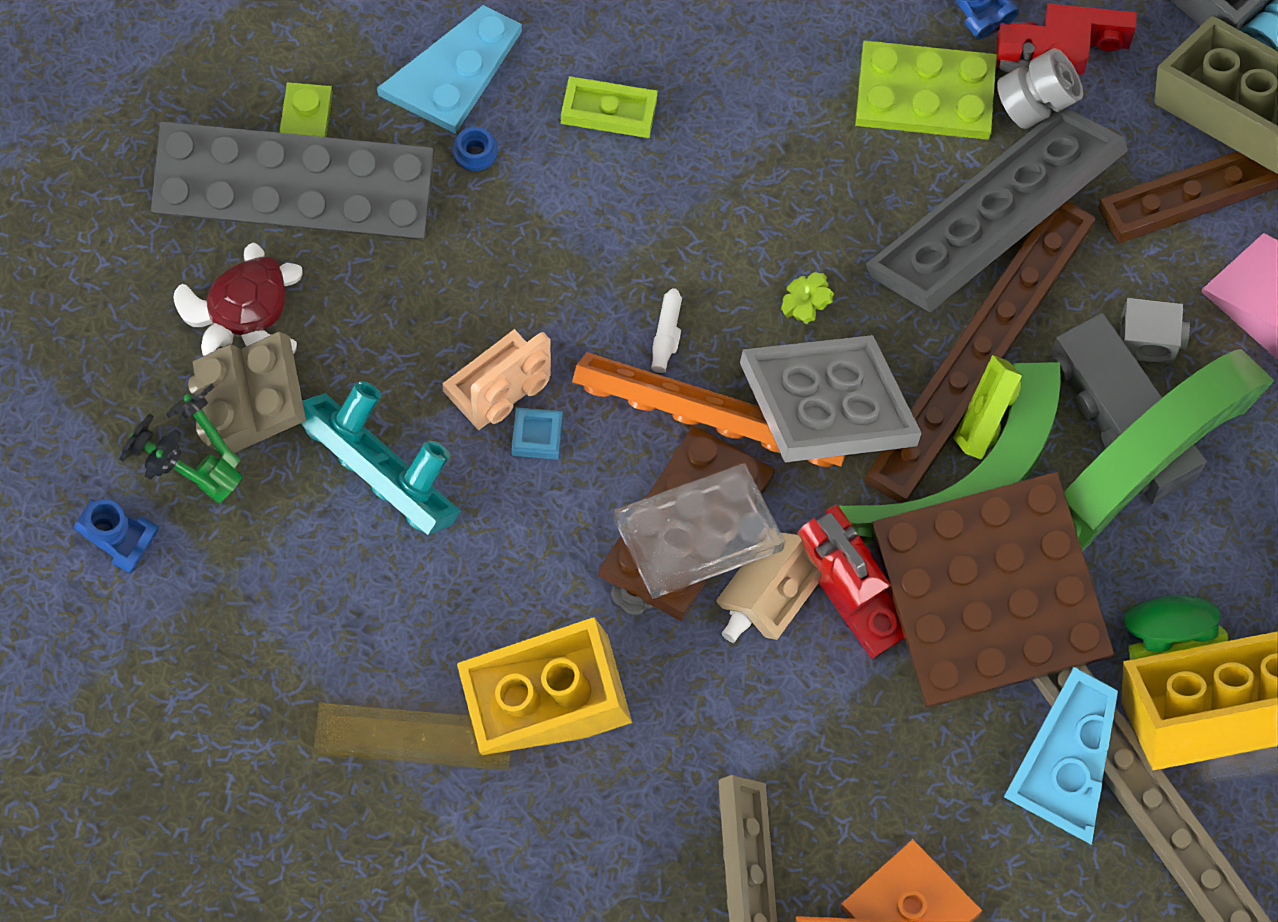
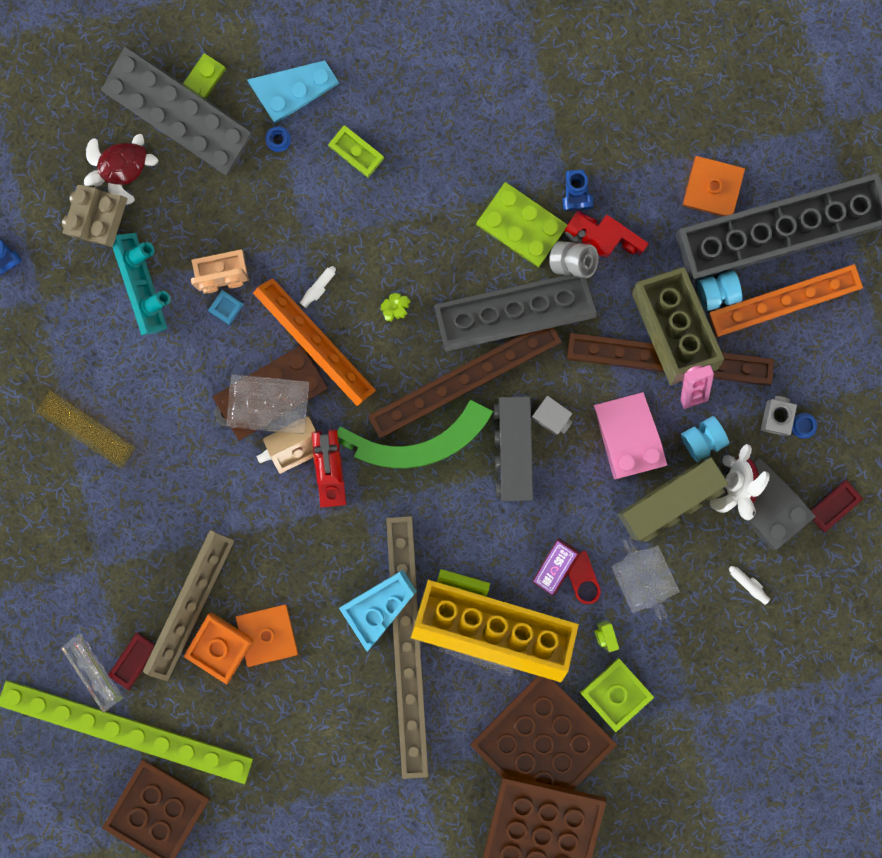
camera: 30 degrees right, 20 degrees up
(212, 475) = (57, 250): plant -> none
(545, 690) = (154, 442): yellow slope -> none
(829, 398) = (369, 370): light grey plate -> none
(981, 421) = (442, 416): lime plate -> none
(992, 590) = (389, 509): reddish brown plate -> none
(1161, 435) = (515, 479): bright green arch -> none
(1172, 620) = (468, 568): green dish -> none

